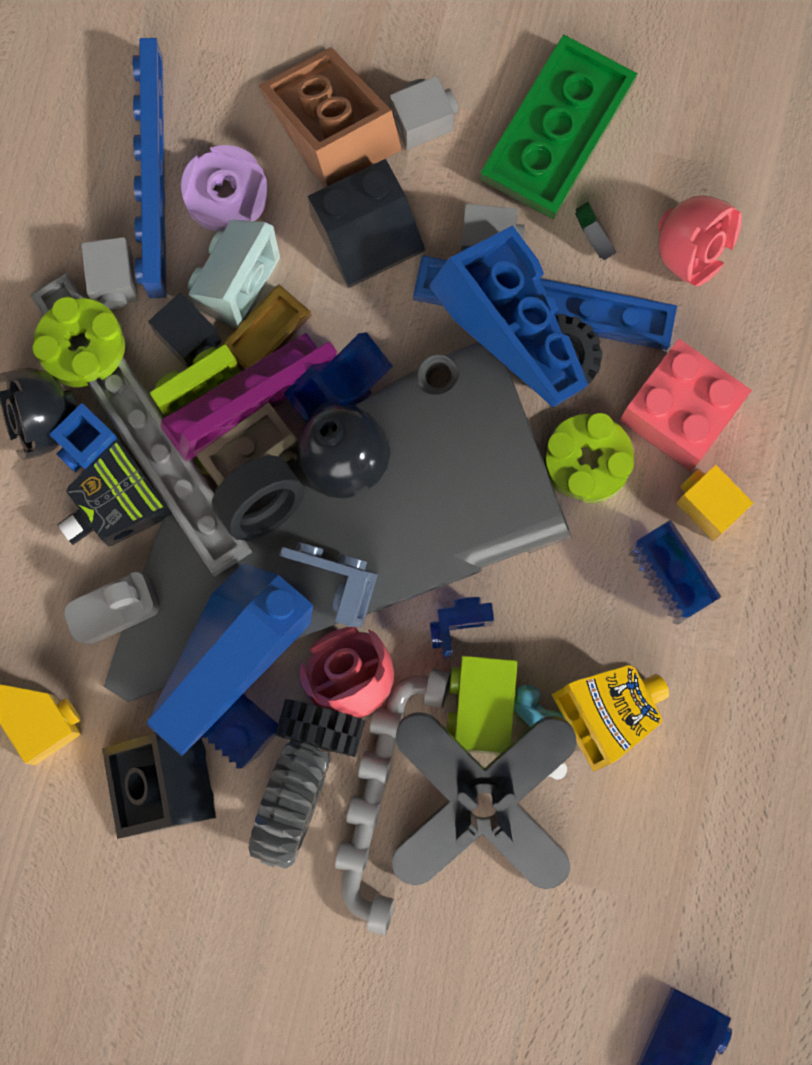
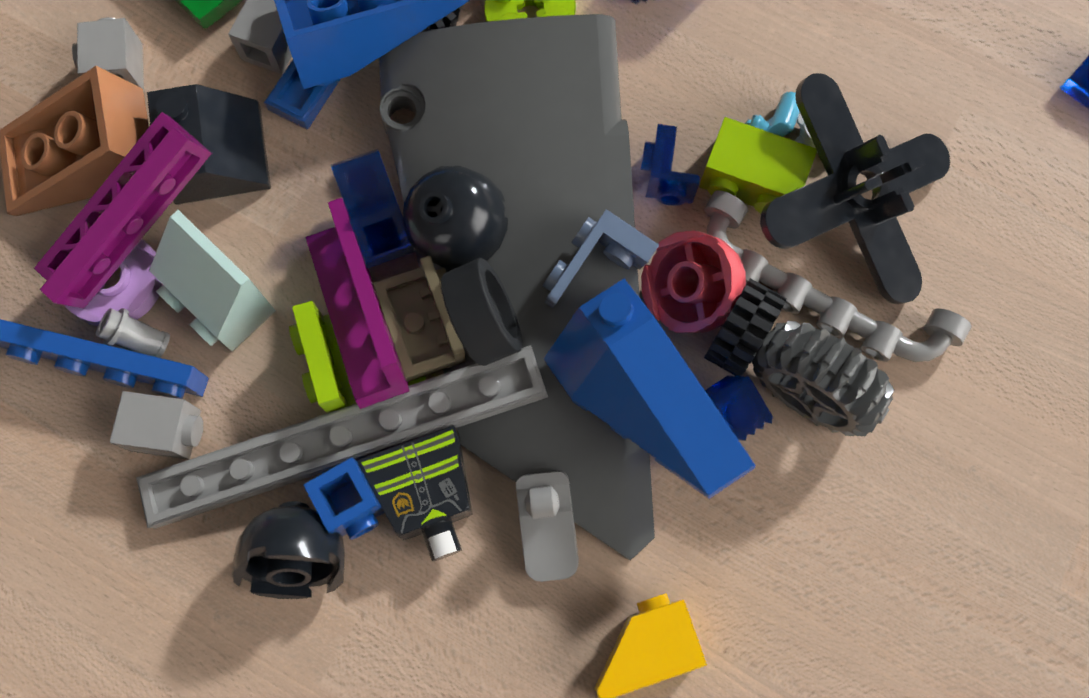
camera: 75 degrees left, 5 degrees down
(69, 319) = (196, 470): lime plate -> none
(157, 786) = (763, 527): black slope -> none
(177, 225) = (131, 334): none -> light grey pin
(184, 330) = (257, 360): black brick -> none
(267, 327) = (283, 275): pearl gold tile -> none
(270, 188) = (126, 218): none -> magenta fence
(611, 712) = (792, 46): yellow torso -> none

